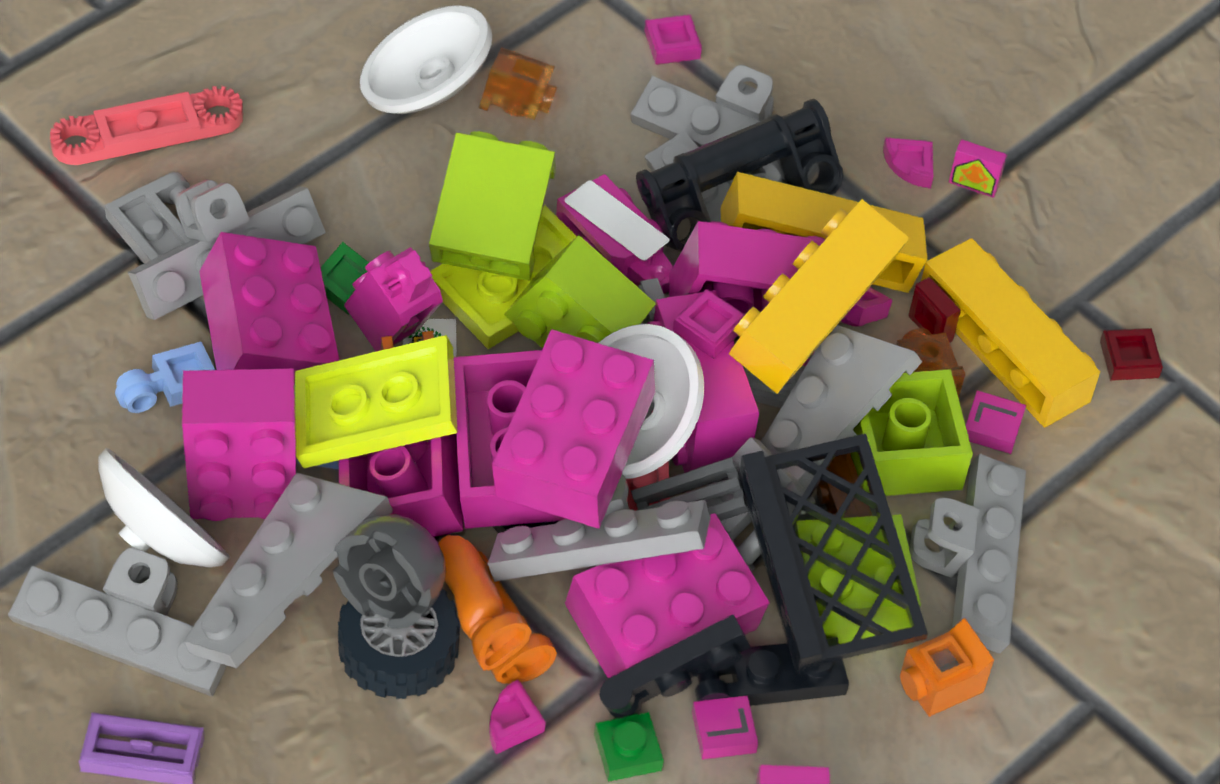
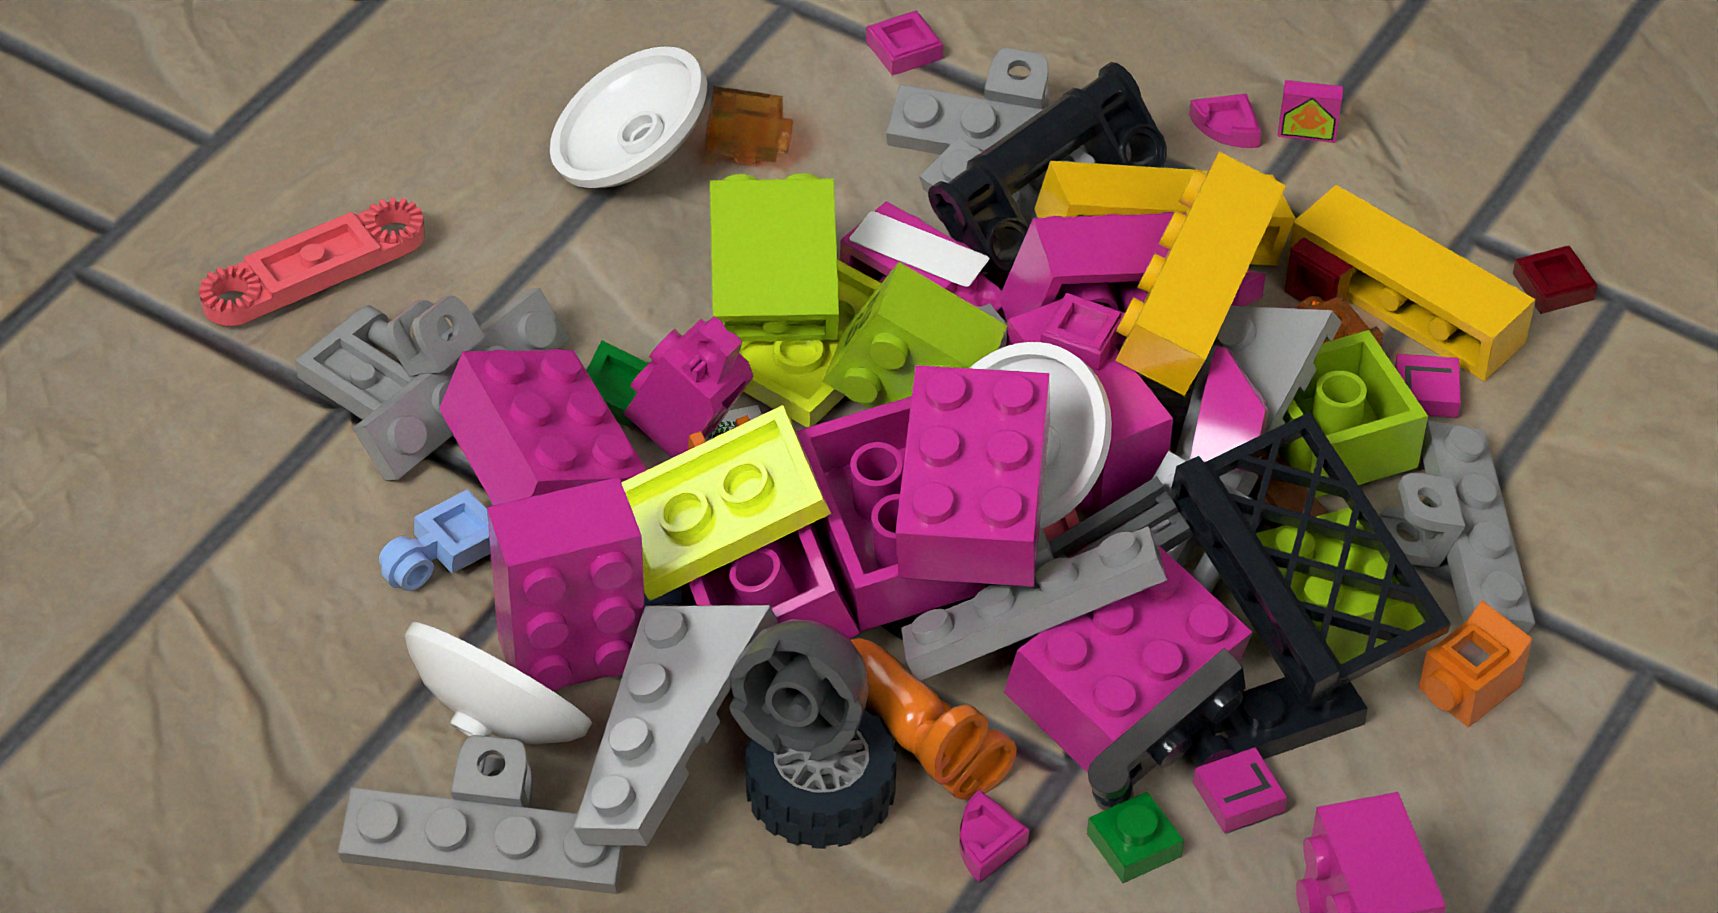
camera: 10 degrees left, 5 degrees down
(808, 415) = (1229, 409): none -> dark pink slope

